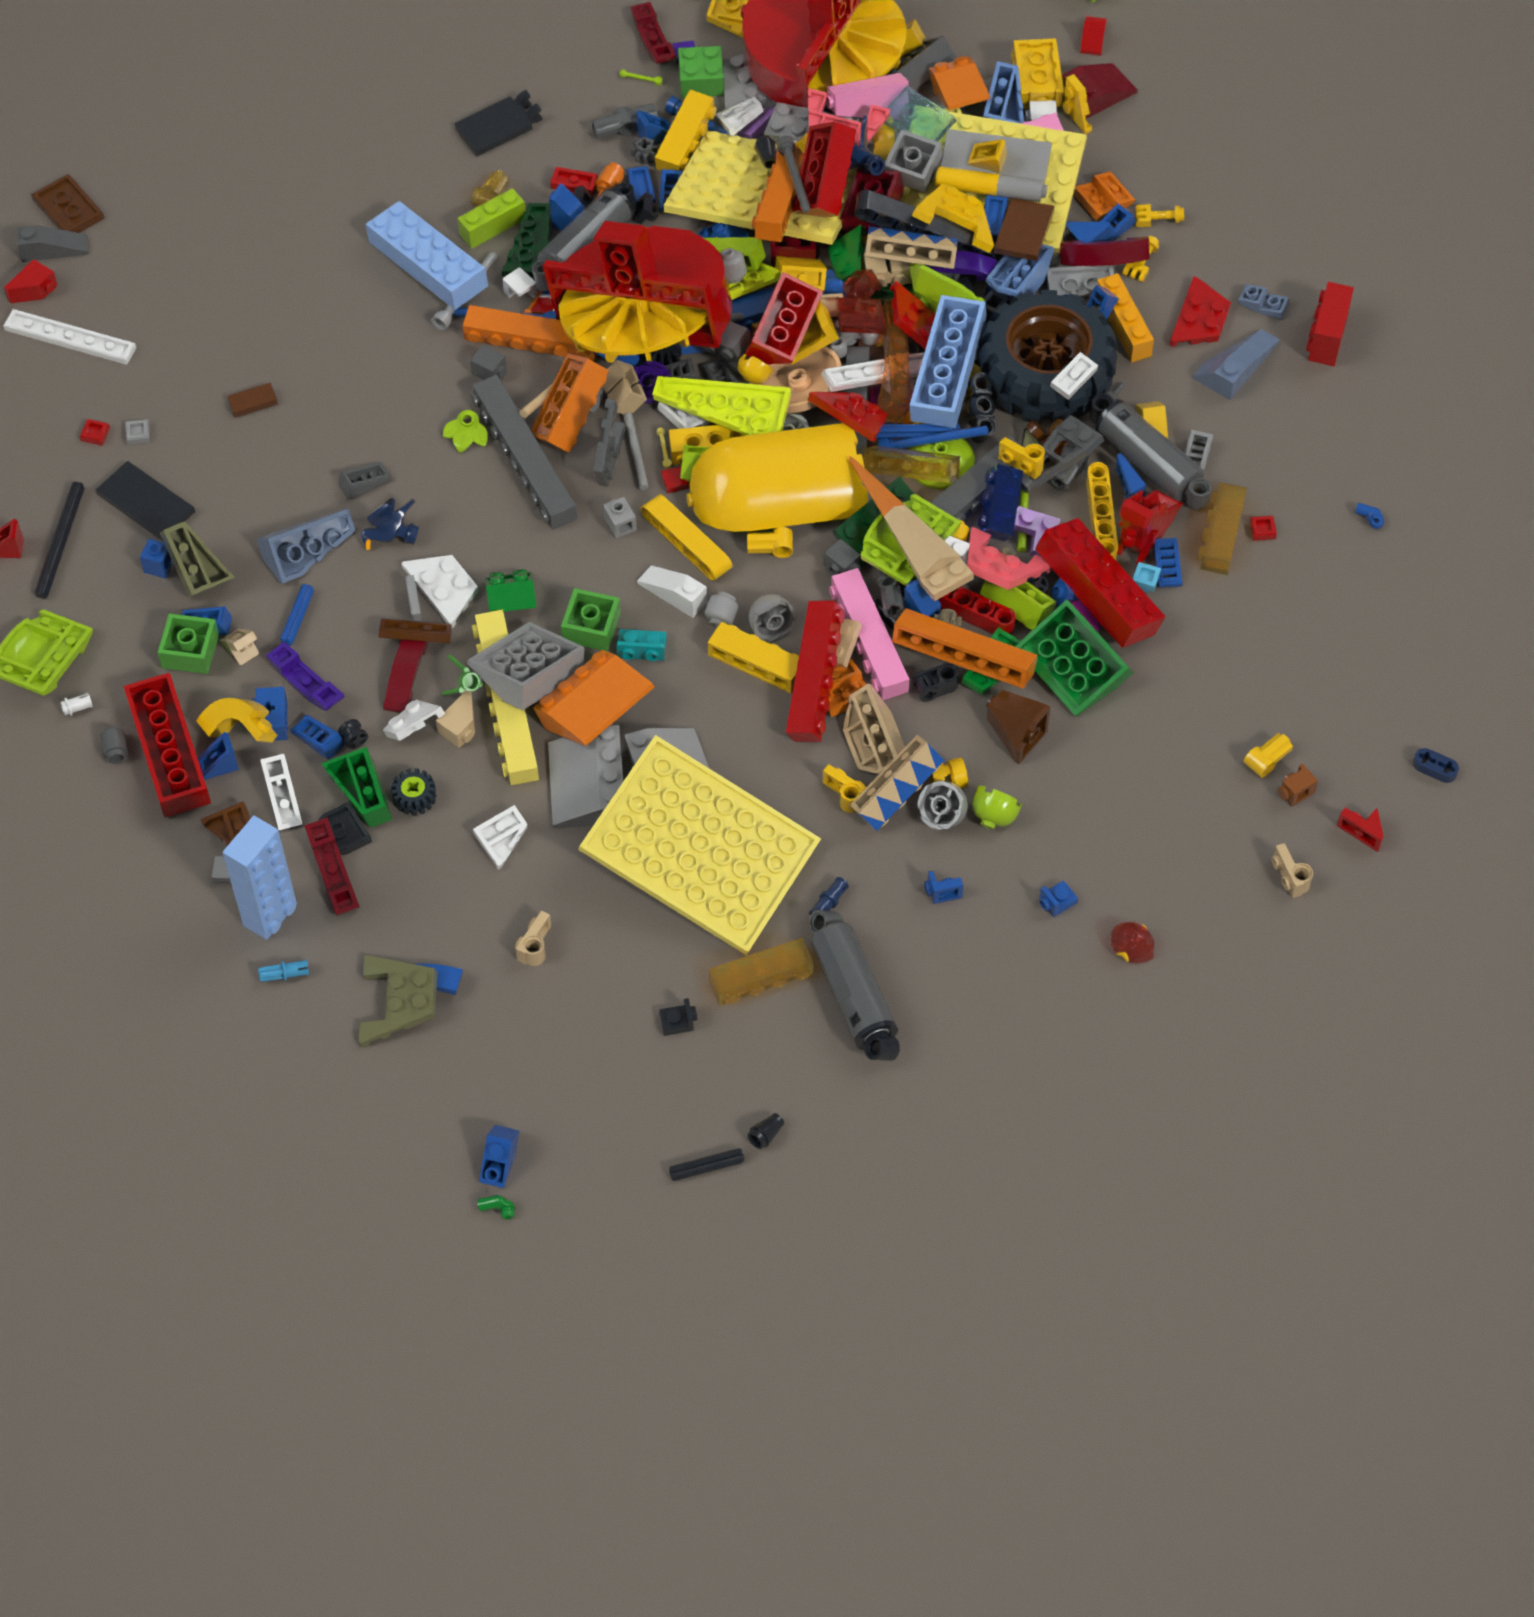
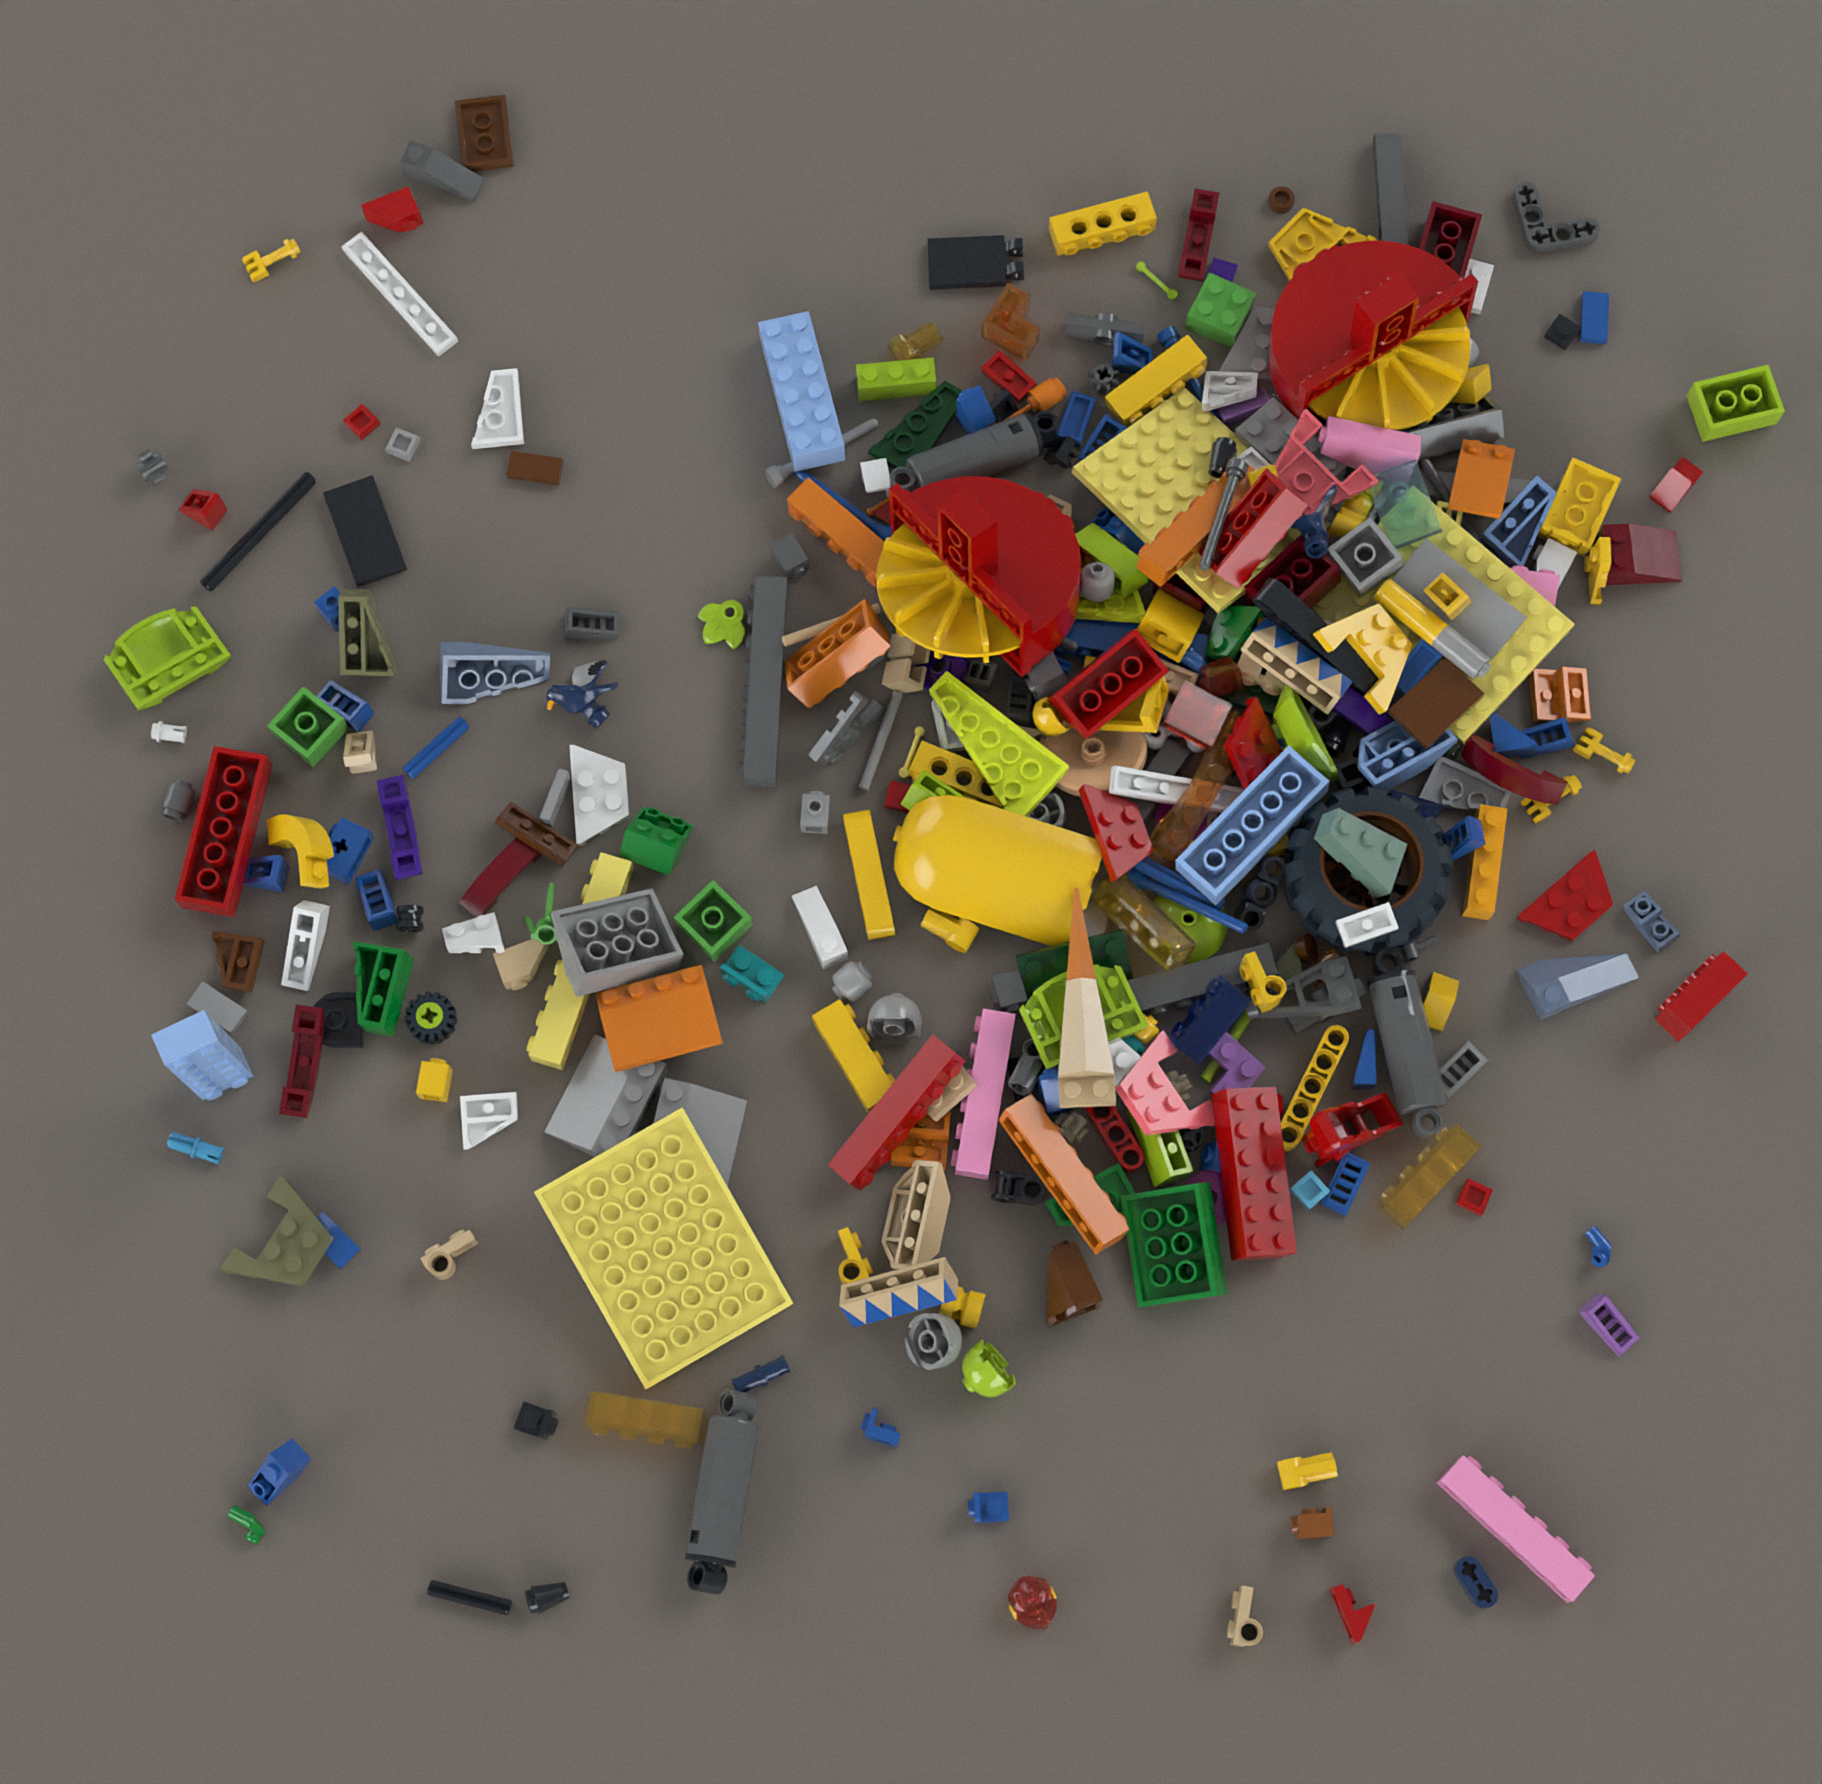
camera: 30 degrees right, 15 degrees up
(202, 375) = (501, 412): none -> white wing
(445, 831) = (434, 1080): none -> yellow brick
(555, 148) = (1007, 326): none -> clear orange brick
(577, 57) = (1111, 213): none -> yellow brick
(1037, 330) = (1363, 849): none -> sand green wedge
(1409, 564) = (1602, 1300): none -> medium lavender slope
(1439, 715) = (1516, 1529): none -> bright pink brick

